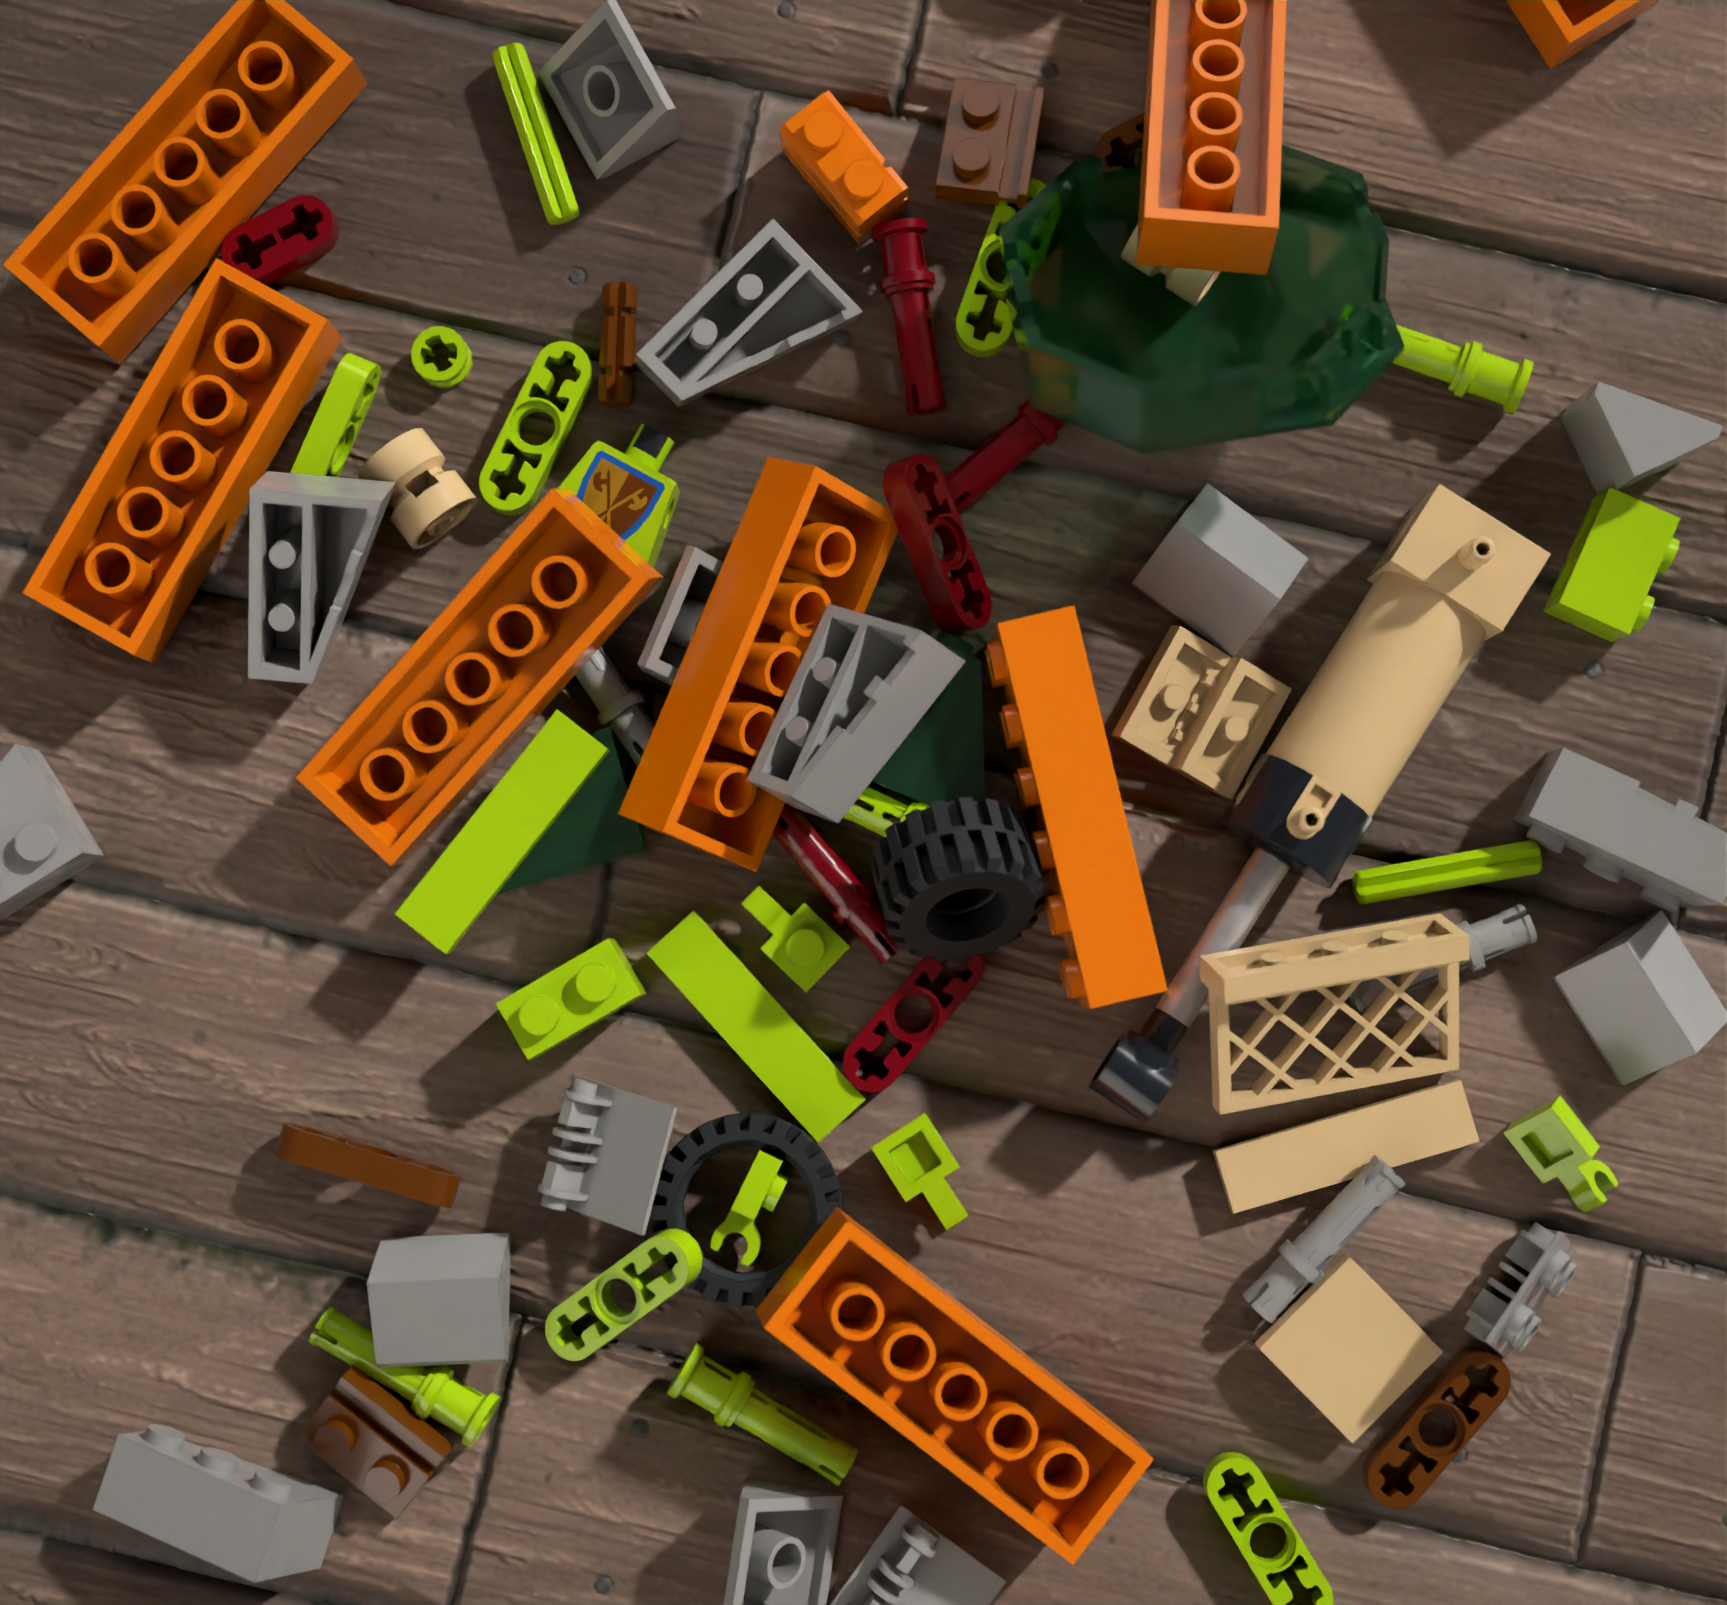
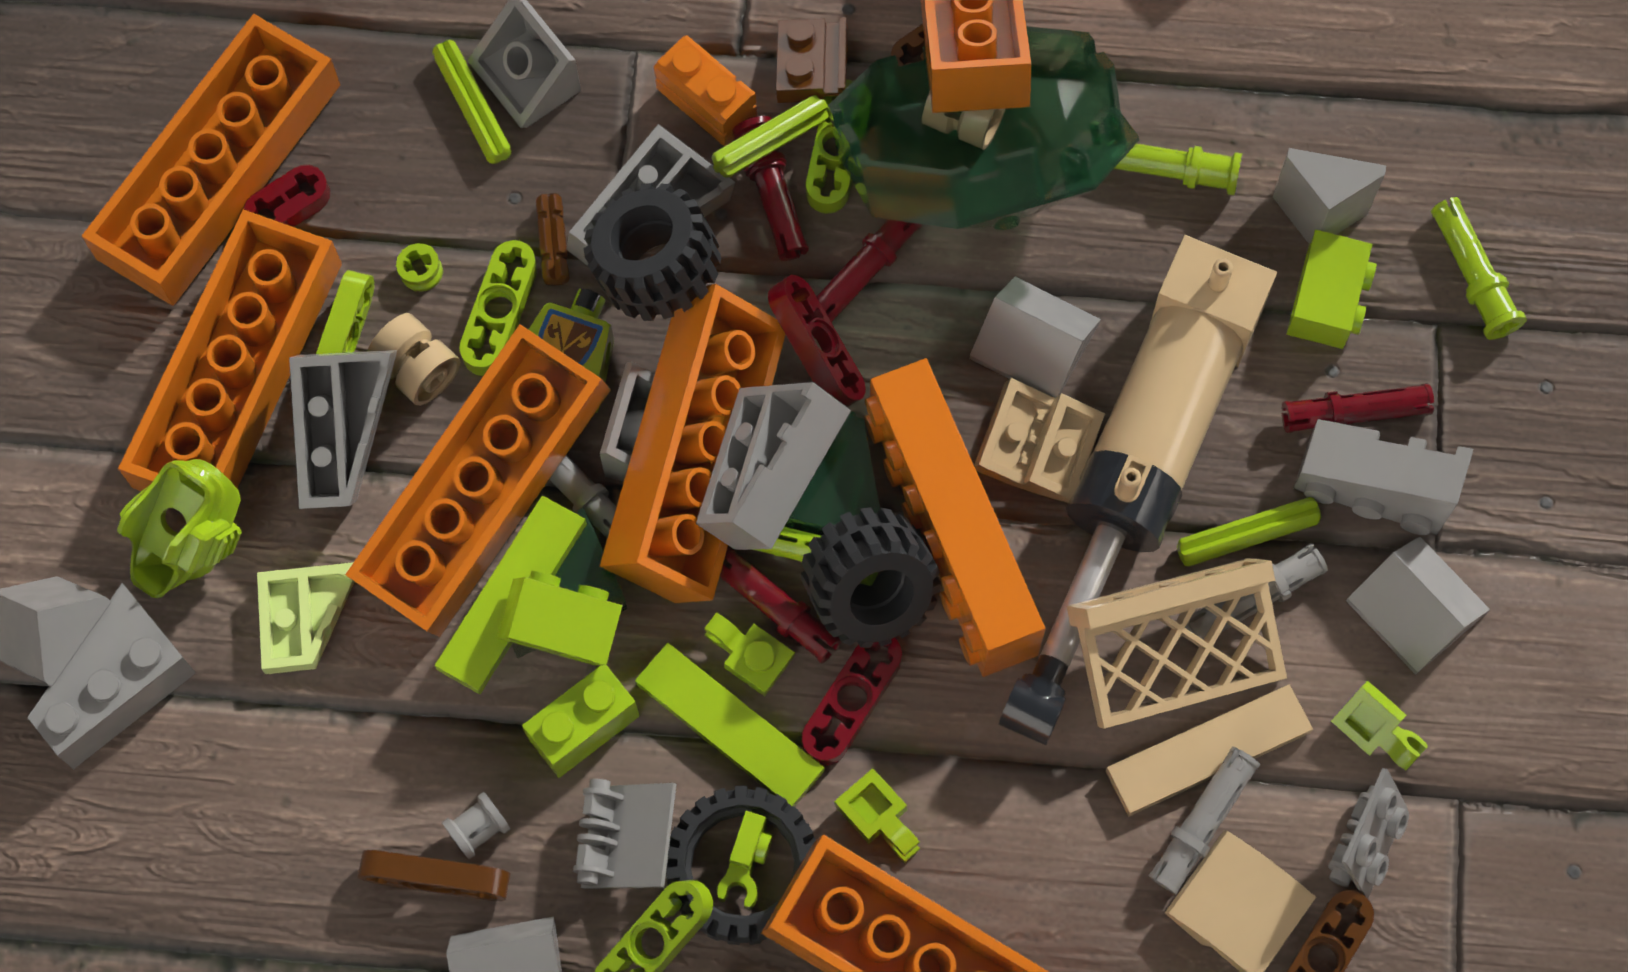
camera: 10 degrees left, 15 degrees down
(71, 708) = (168, 558): none -> lime piece
(237, 805) = (299, 614): none -> yellowish green wing
(426, 1110) = (476, 825): none -> light grey bush
(557, 882) = (560, 619): none -> lime brick
(714, 370) = (635, 226): none -> black tyre
(918, 252) = (769, 136): none -> lime axle
(1627, 730) = (1358, 407): none -> dark red pin

